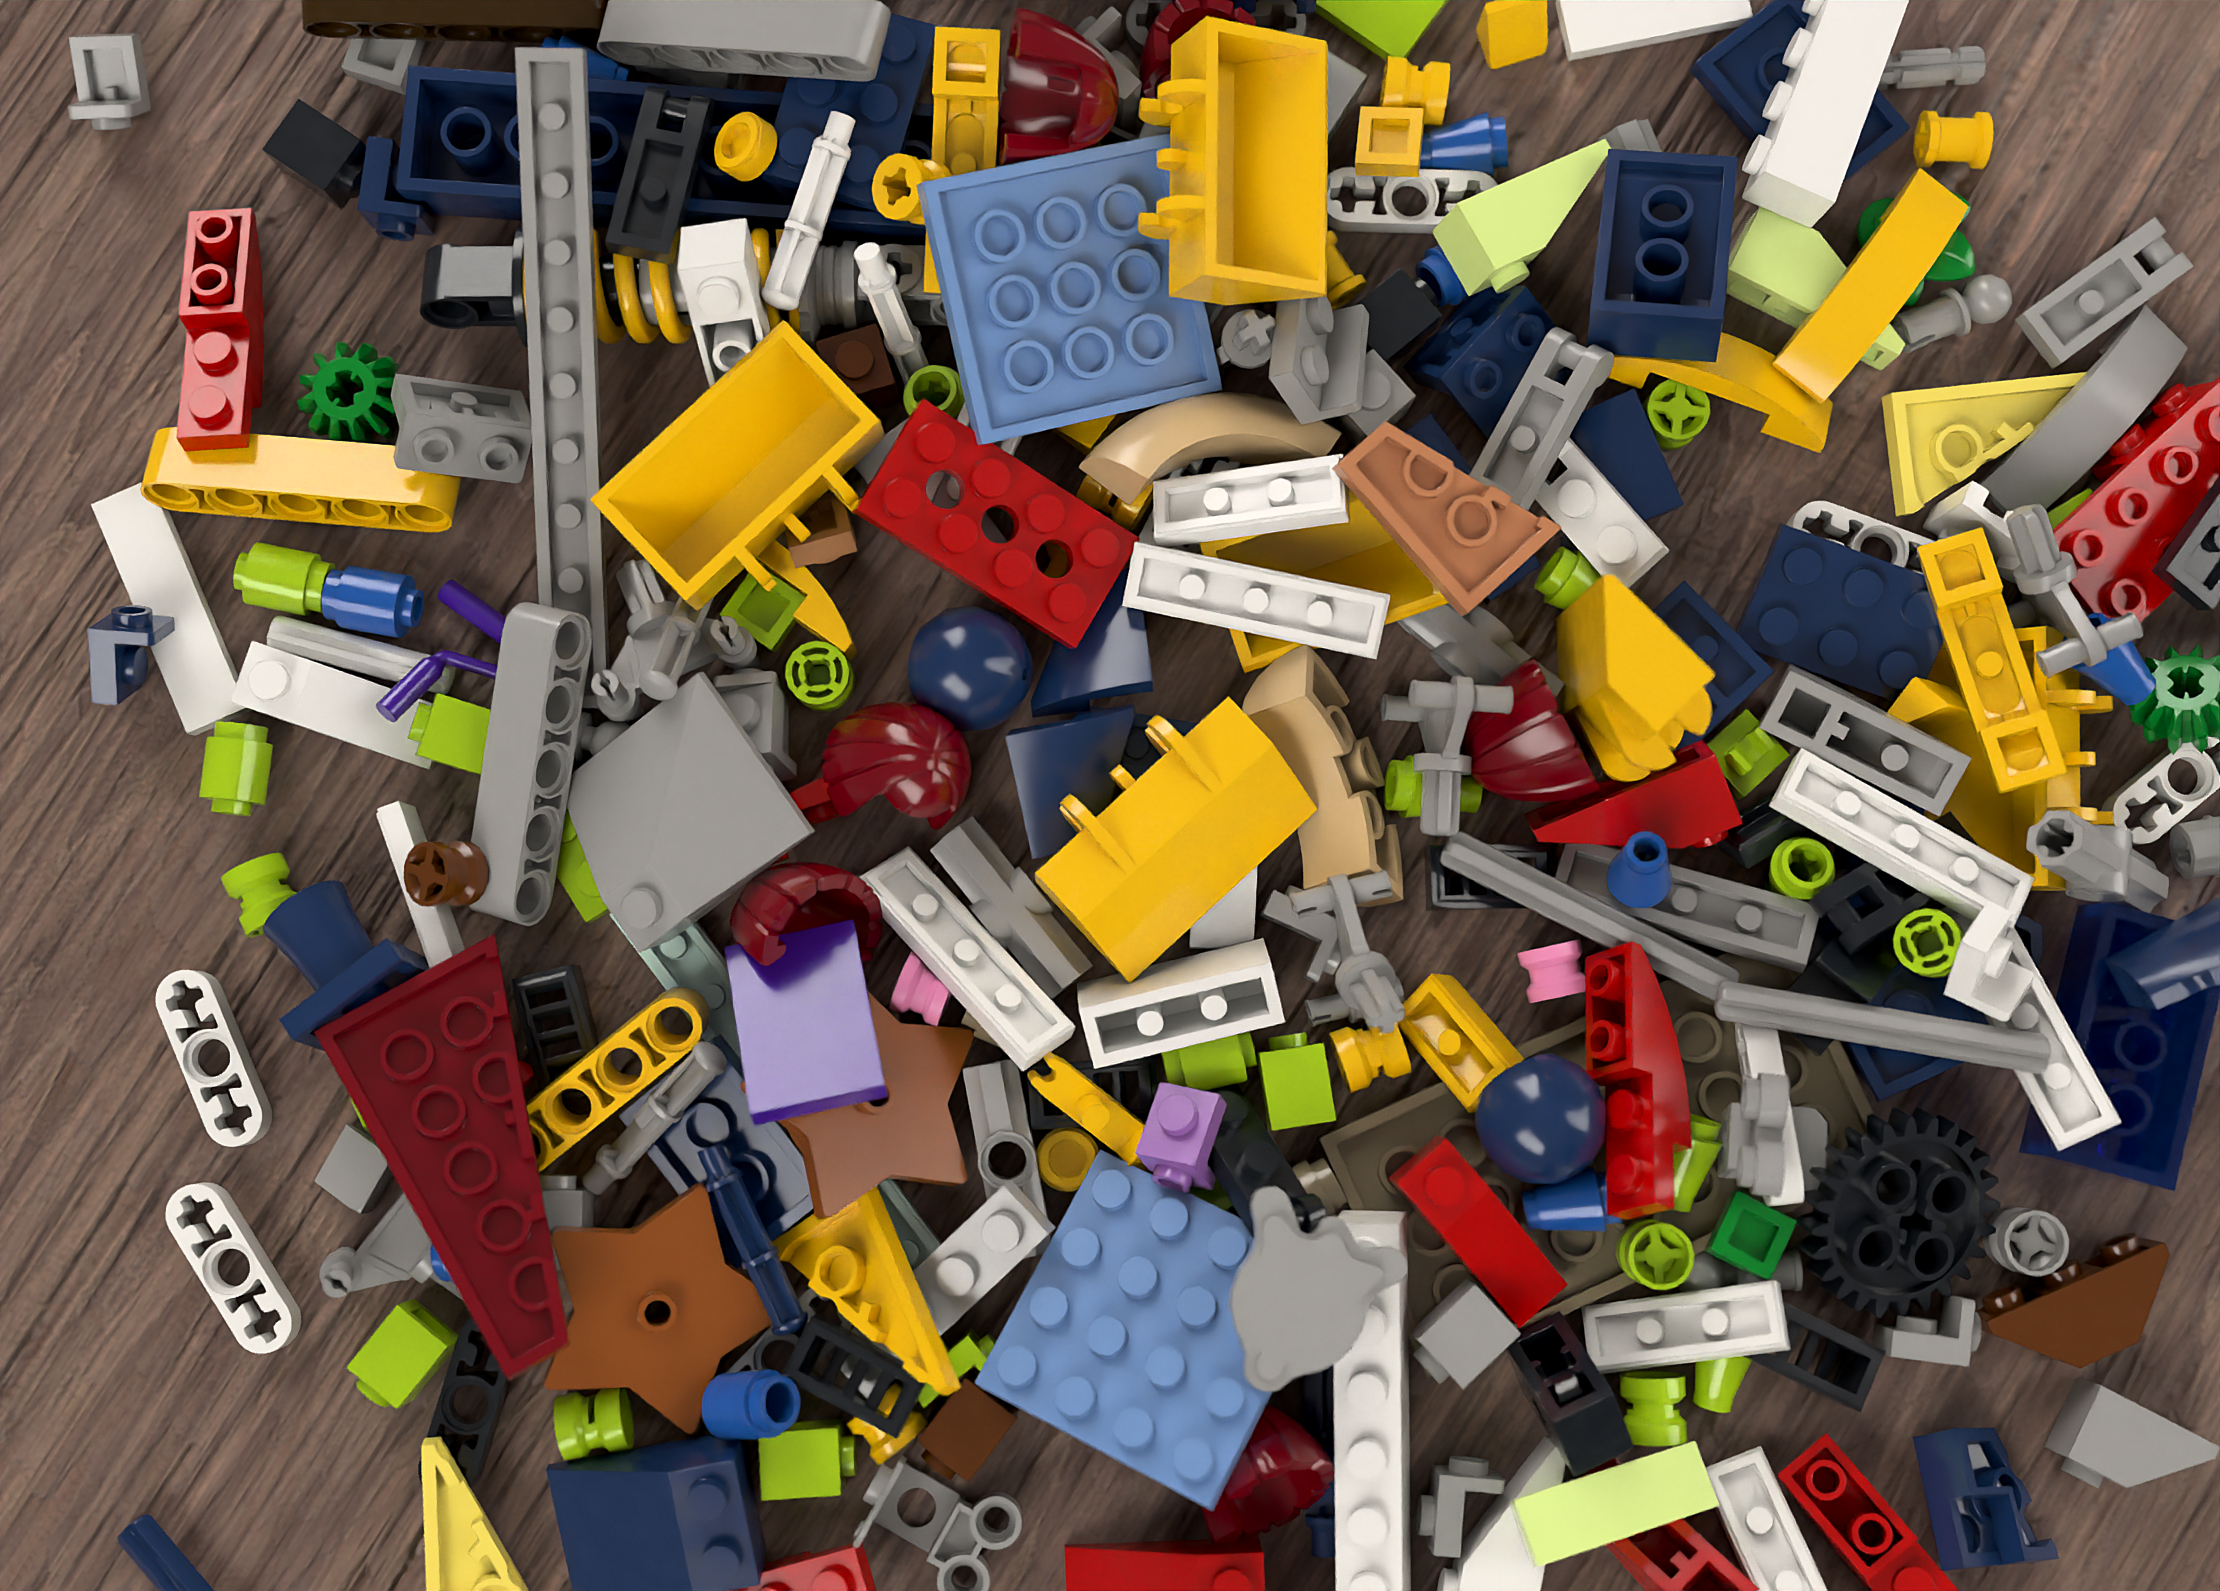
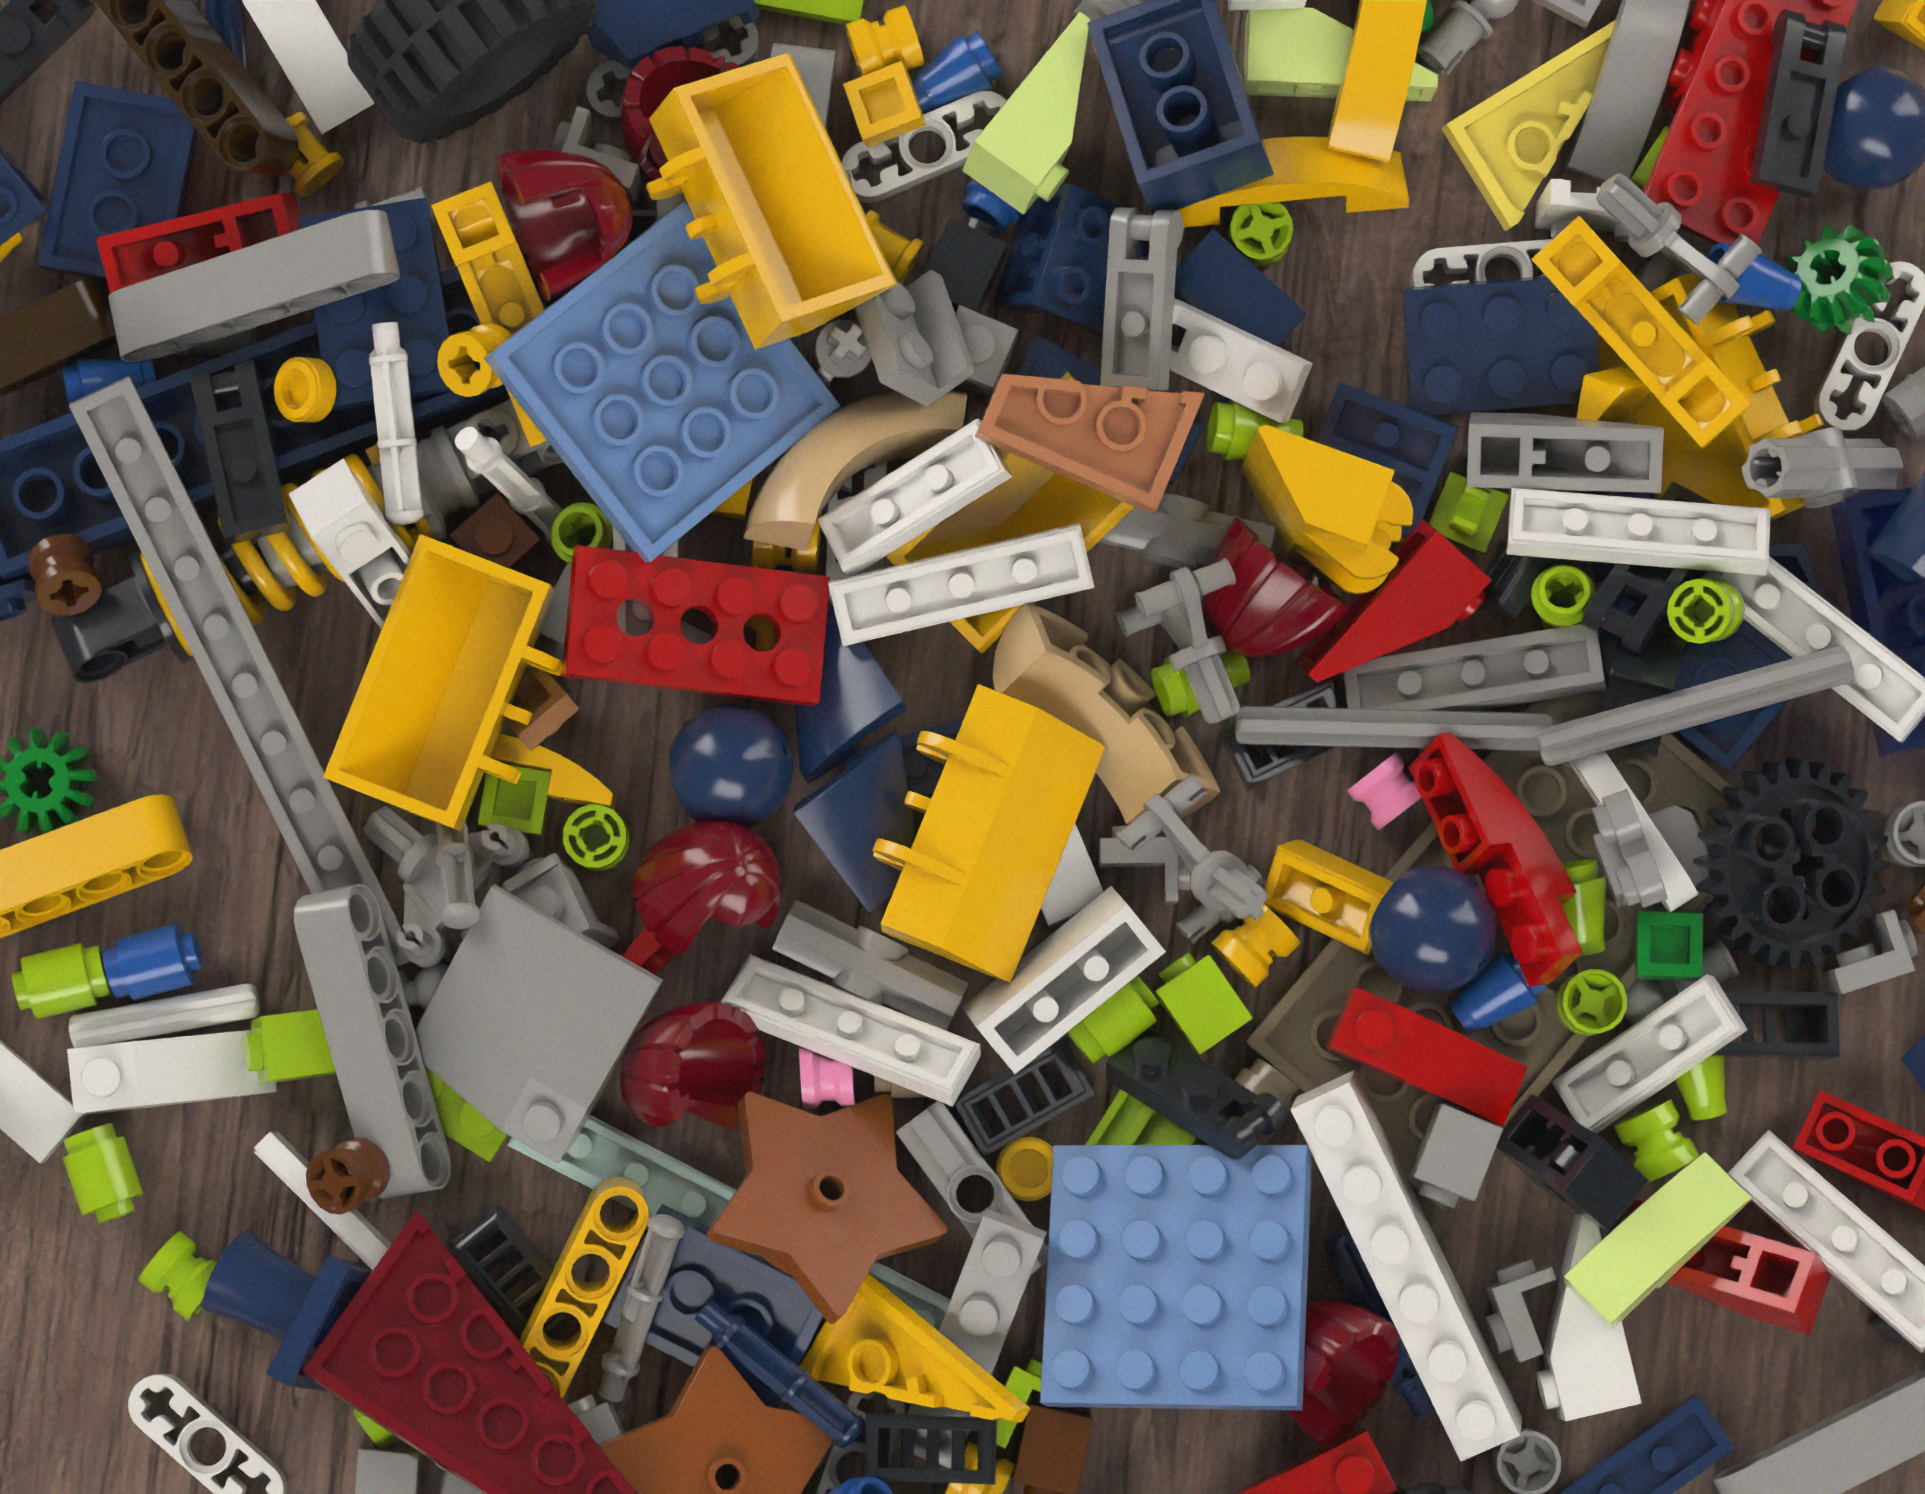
camera: 25 degrees left, 0 degrees up
(430, 669) = (238, 997): dark purple piece -> none
(452, 214) = (64, 575): none -> reddish brown wheel
(461, 429) = (162, 765): light grey bracket -> none
(805, 1025) = (740, 1155): tile -> none
(1091, 1108) = (1037, 1112): yellow piece -> none
(1181, 1137) = (1121, 1098): medium lavender bracket -> none
(1303, 1294) = (1291, 1183): light grey tile -> none
(1640, 871) = (1420, 667): blue cone -> none
(1982, 970) = (1757, 613): white bracket -> none

